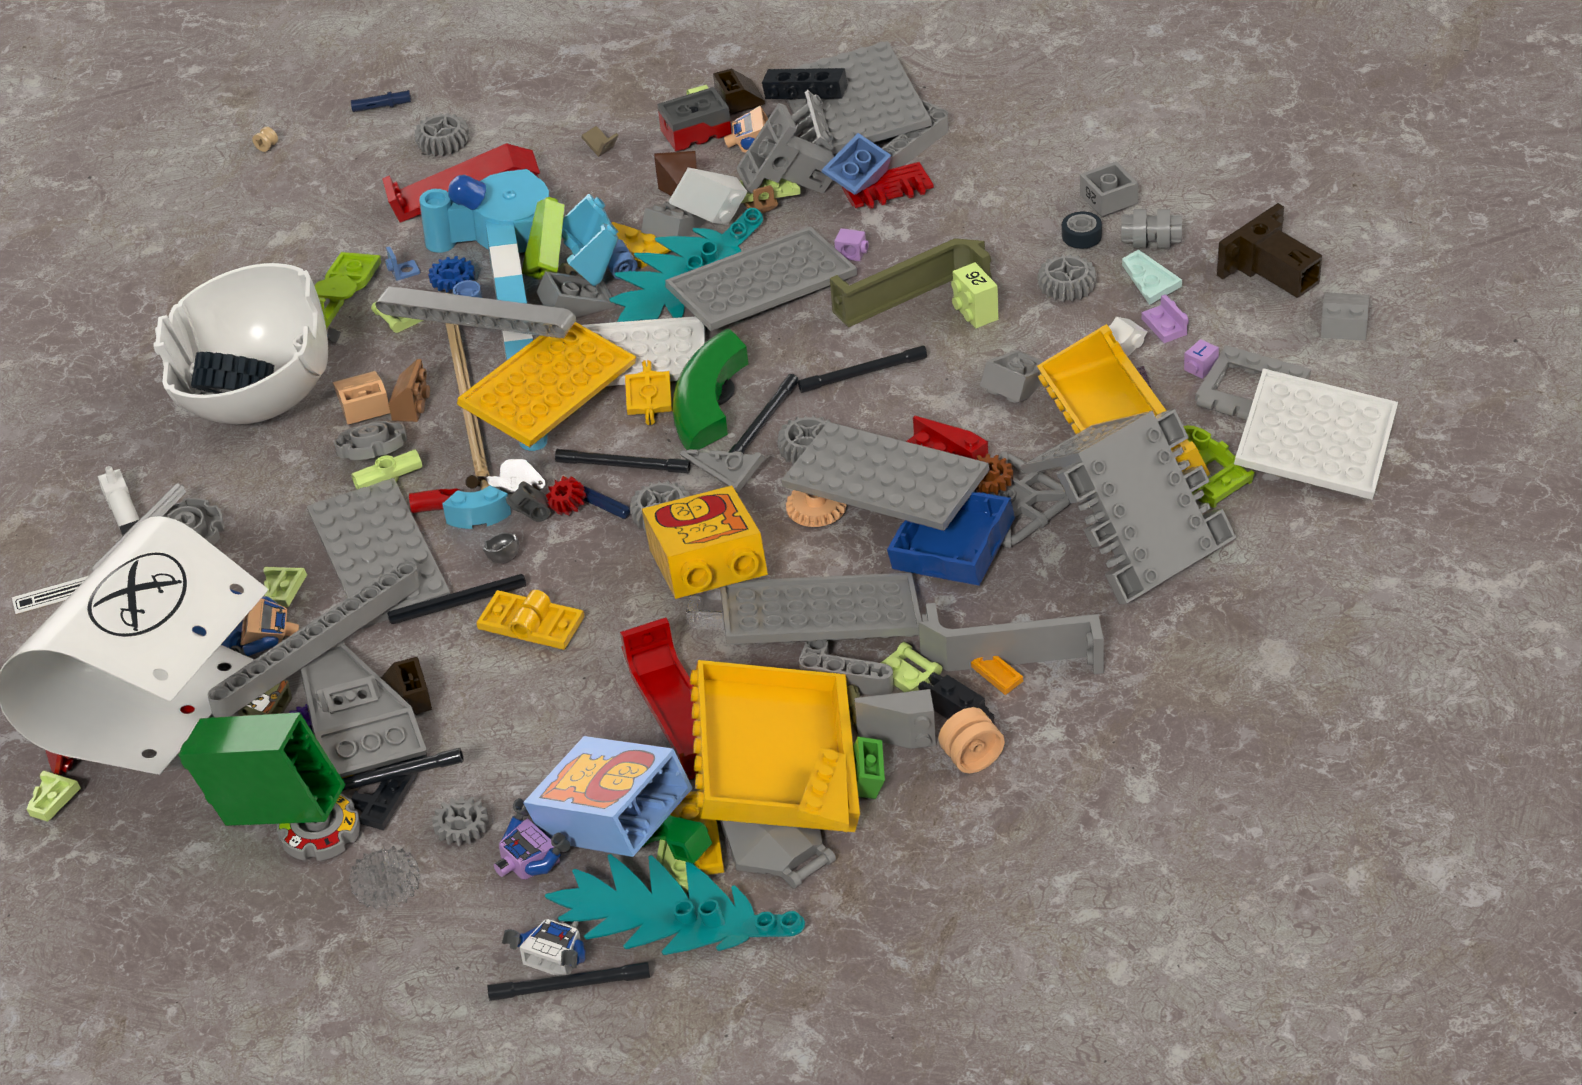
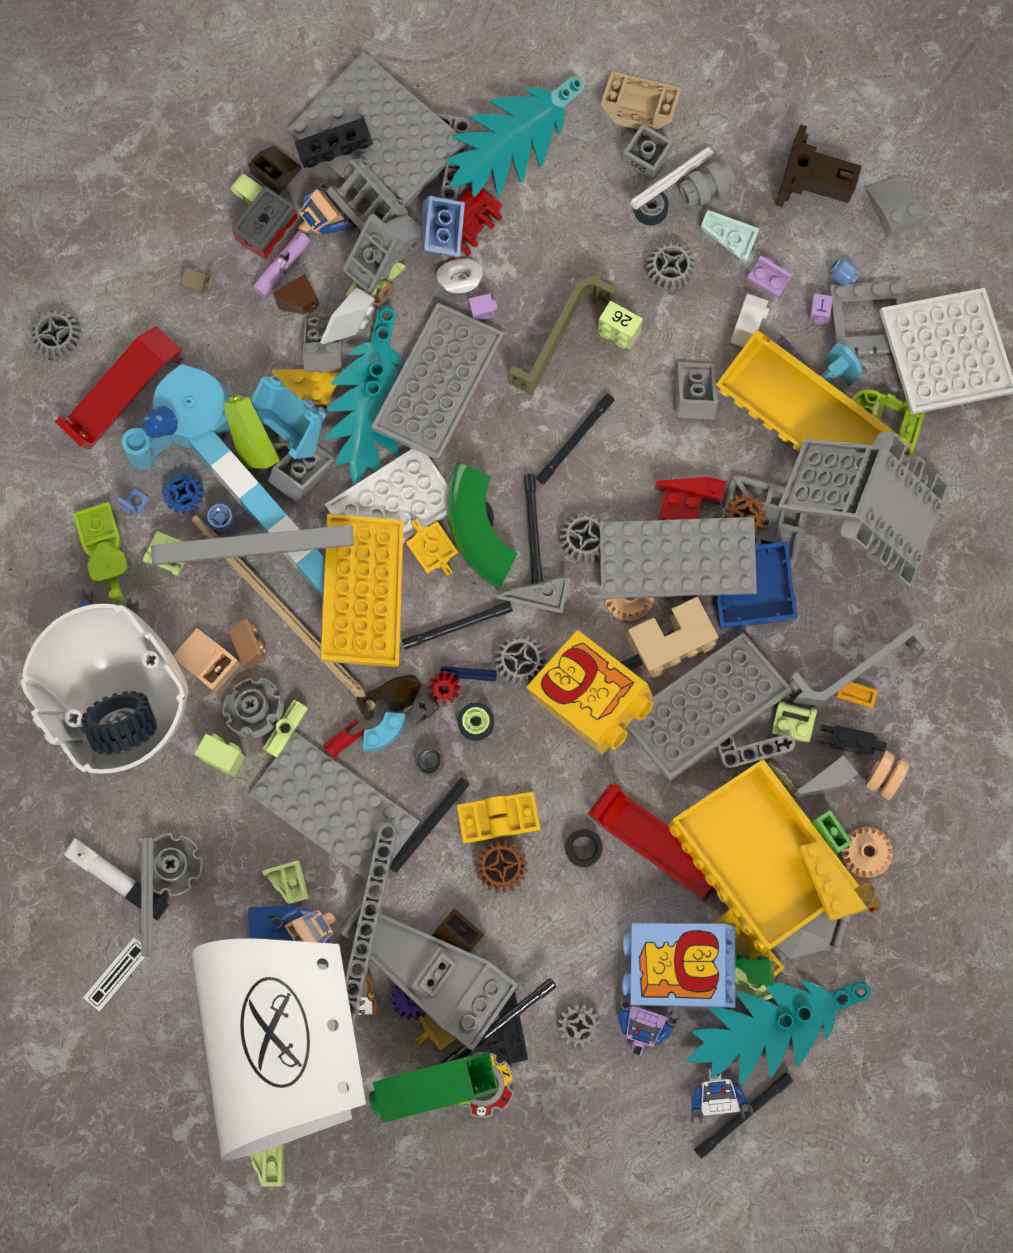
camera: 35 degrees left, 35 degrees up
(306, 458) = (220, 755): none -> yellowish green brick
(498, 657) = (498, 849): none -> dark orange gear
(574, 535) = (475, 732): none -> wheel
(593, 665) = (584, 833): none -> black tyre
(704, 151) = (279, 266): none -> lavender piece
(809, 544) = (656, 652): none -> tan piece
(846, 216) = (459, 275): none -> white hat
(864, 841) = (866, 892): none -> clear yellow animal
(901, 811) = (861, 864): none -> light nougat gear
(1005, 127) = (512, 136): none -> teal plant
(1104, 211) = (671, 178): none -> white axle
(1132, 154) = (639, 101): none -> tan slope
(1187, 401) = (843, 364): none -> medium azure piece
(1248, 338) = (843, 272): none -> medium blue head

